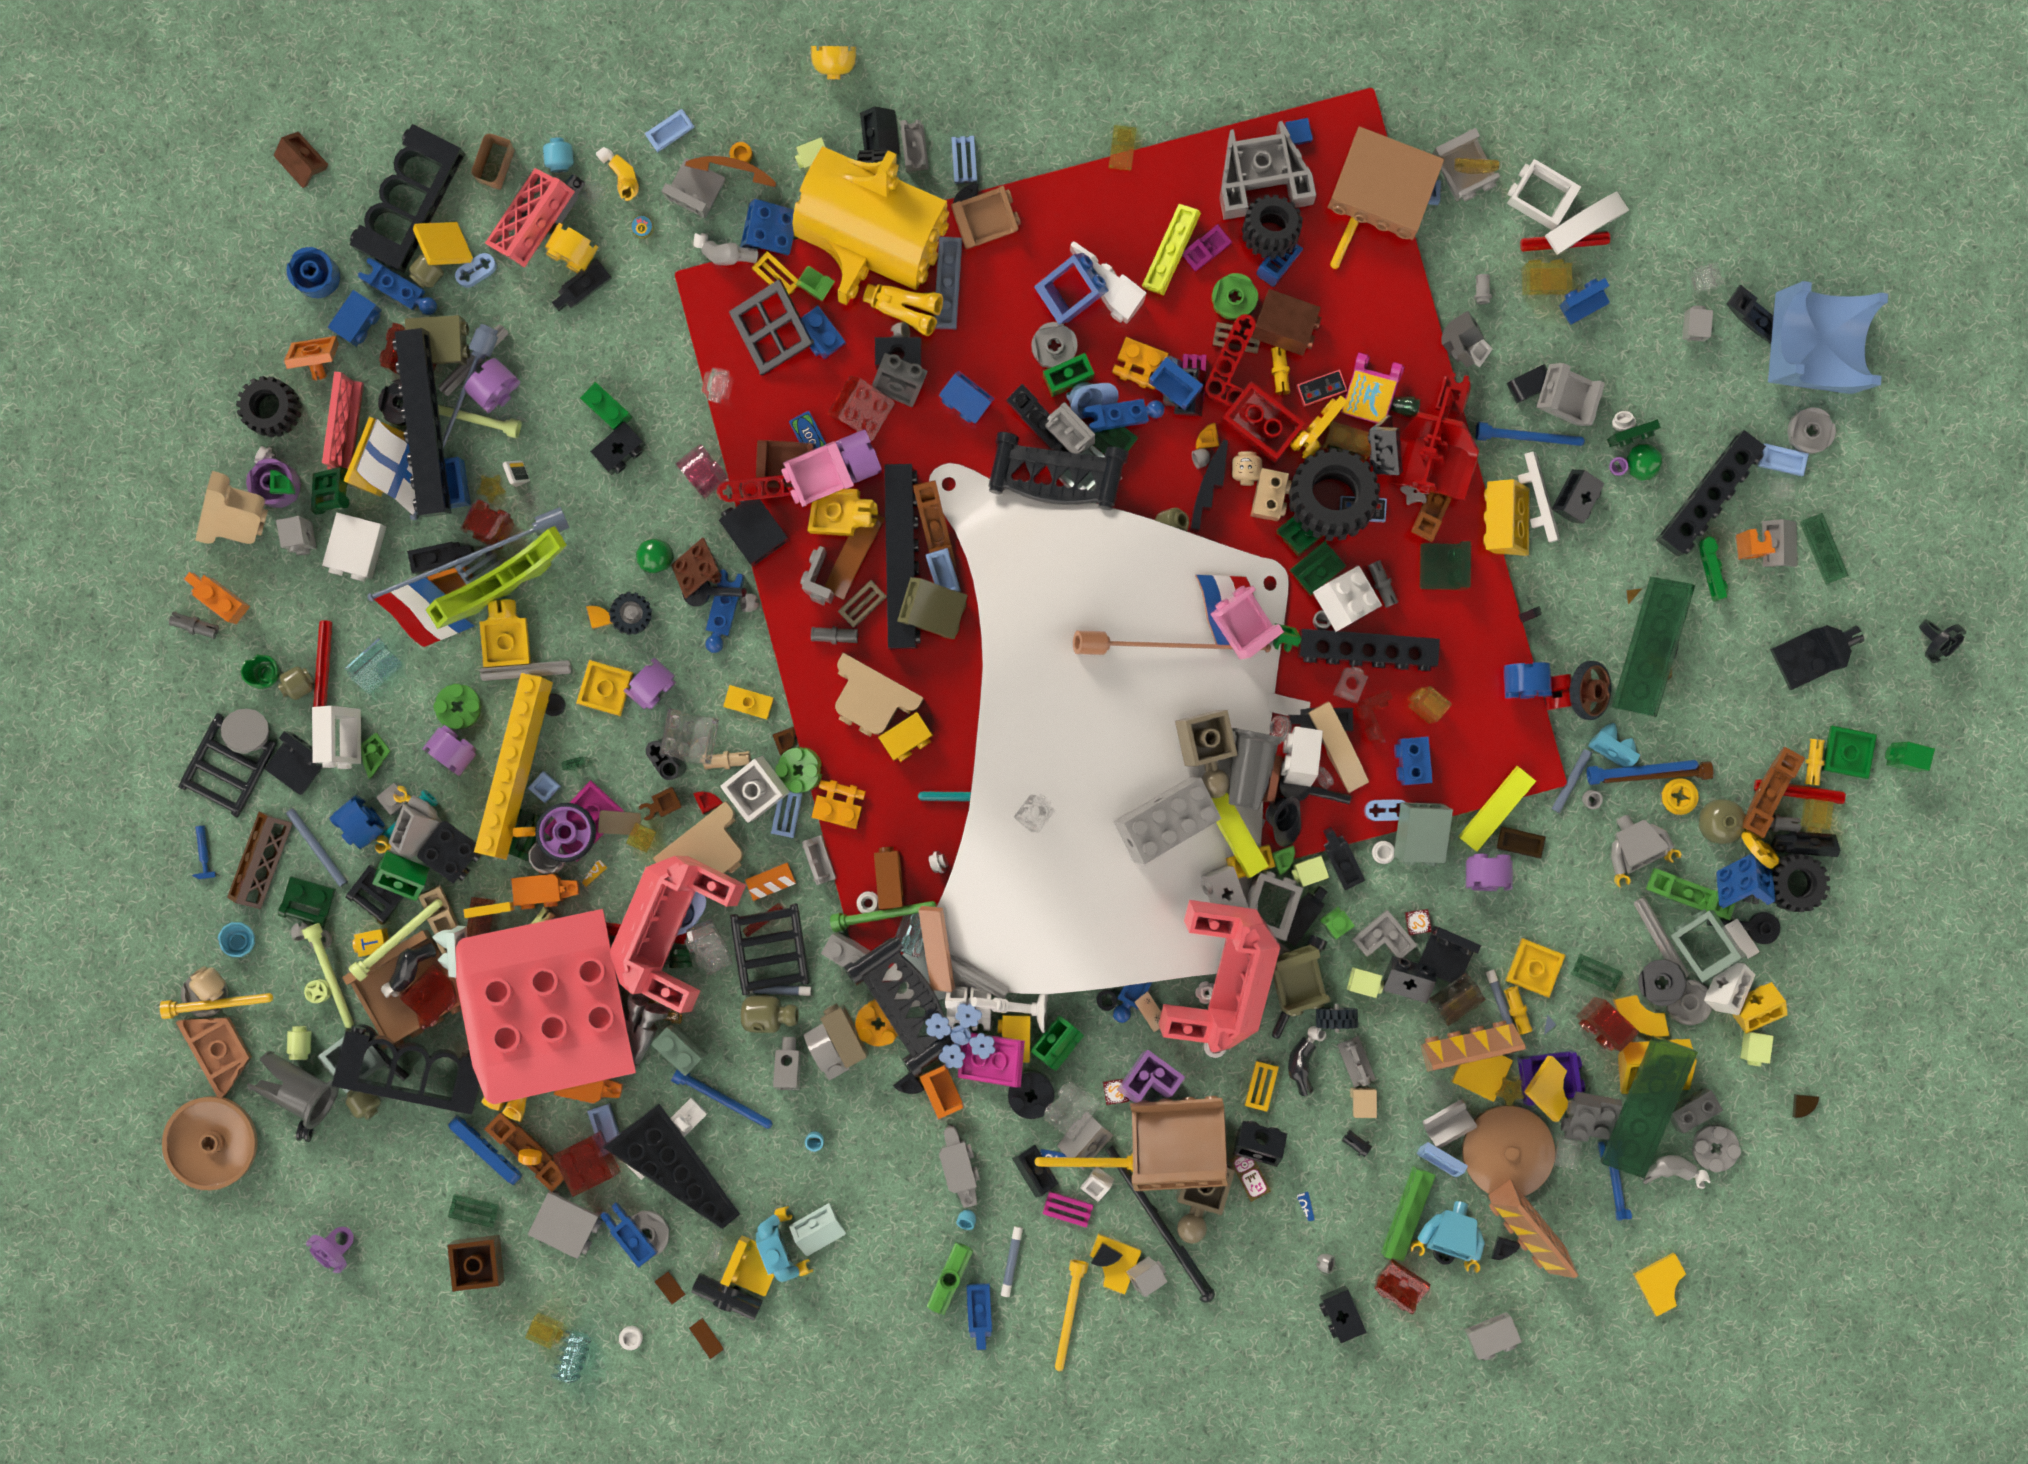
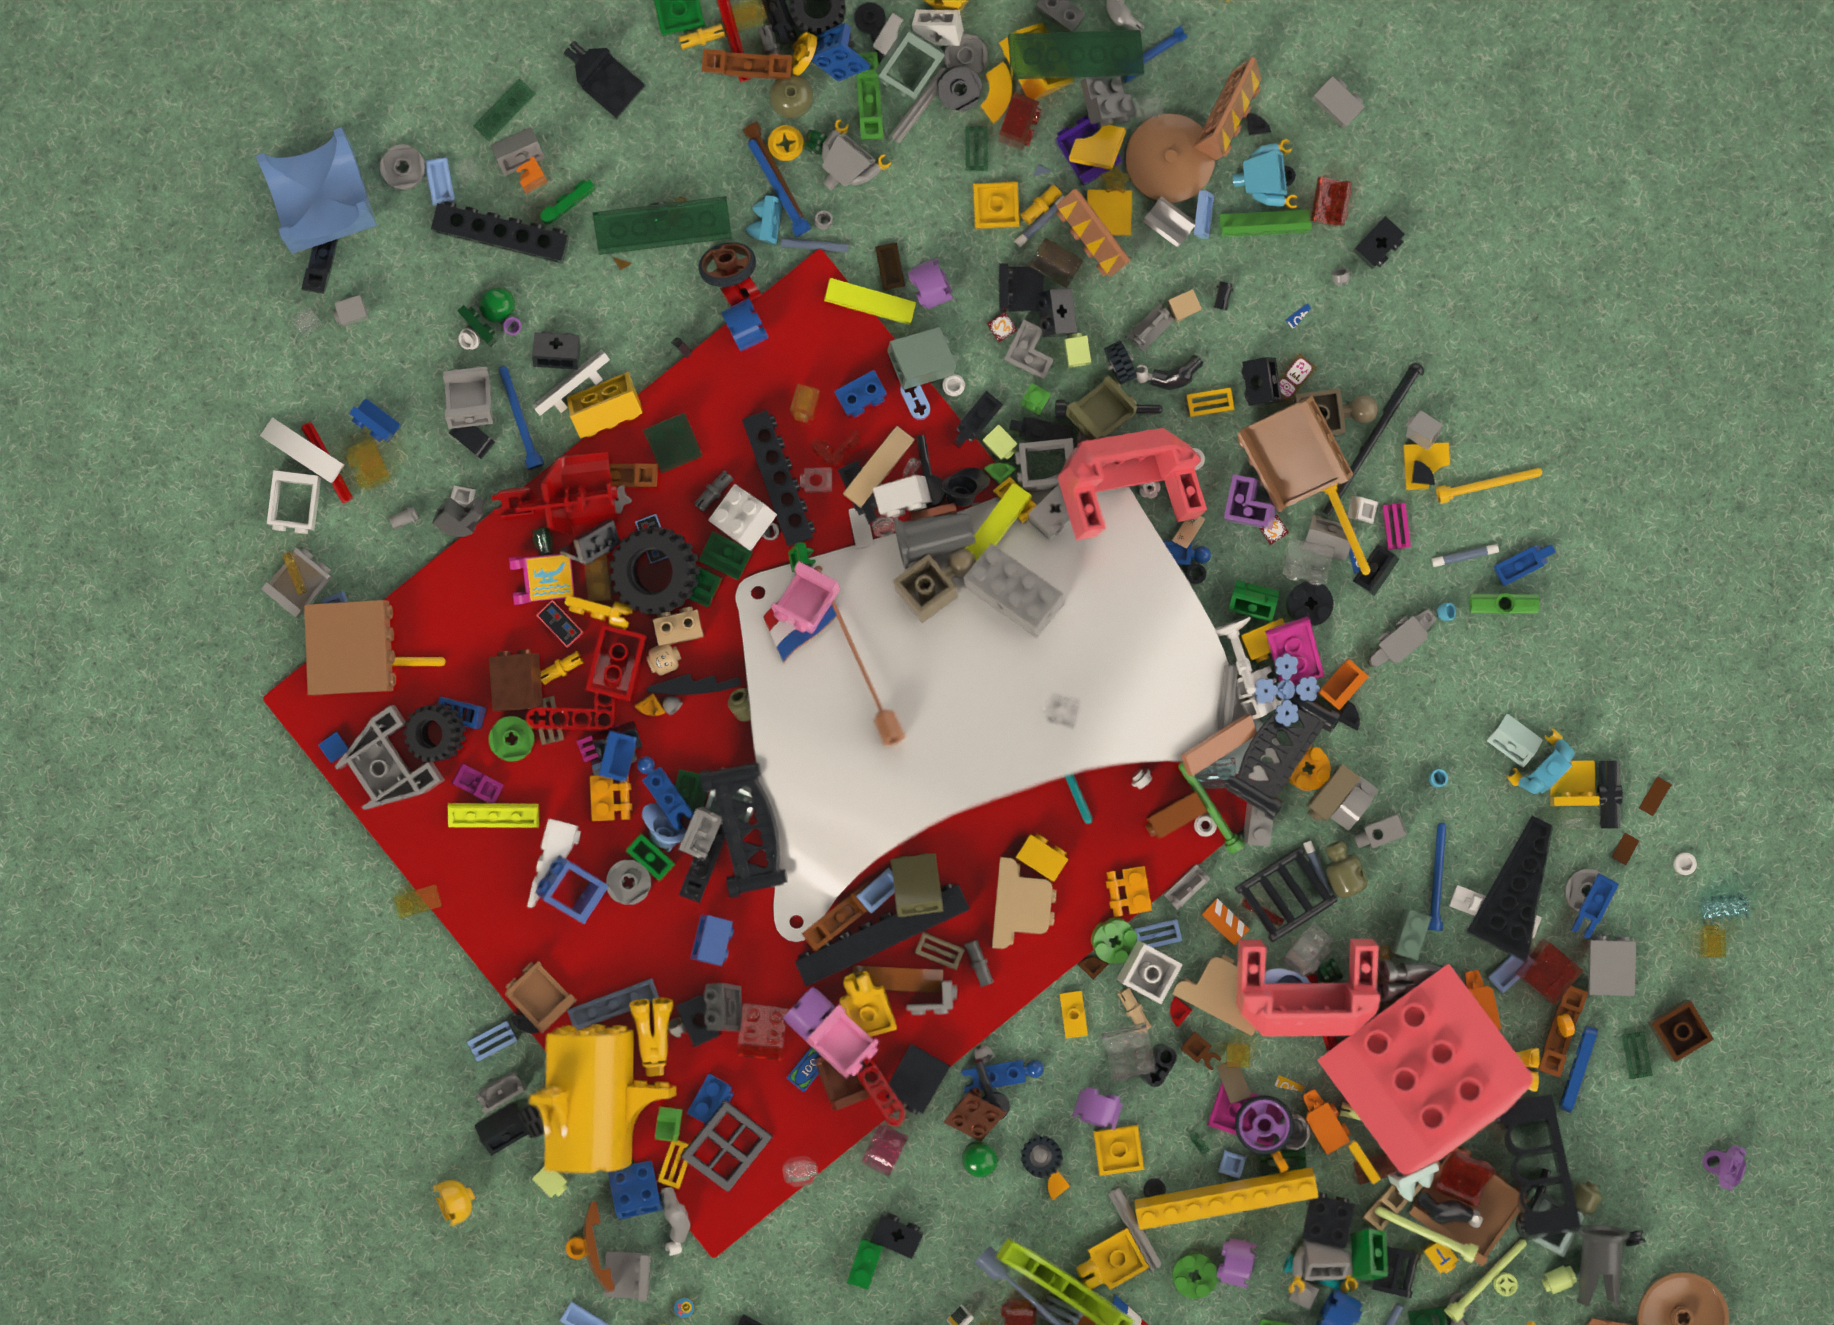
camera: 110 degrees left, 0 degrees up
(1669, 823) = (814, 142): none -> dark green wheel

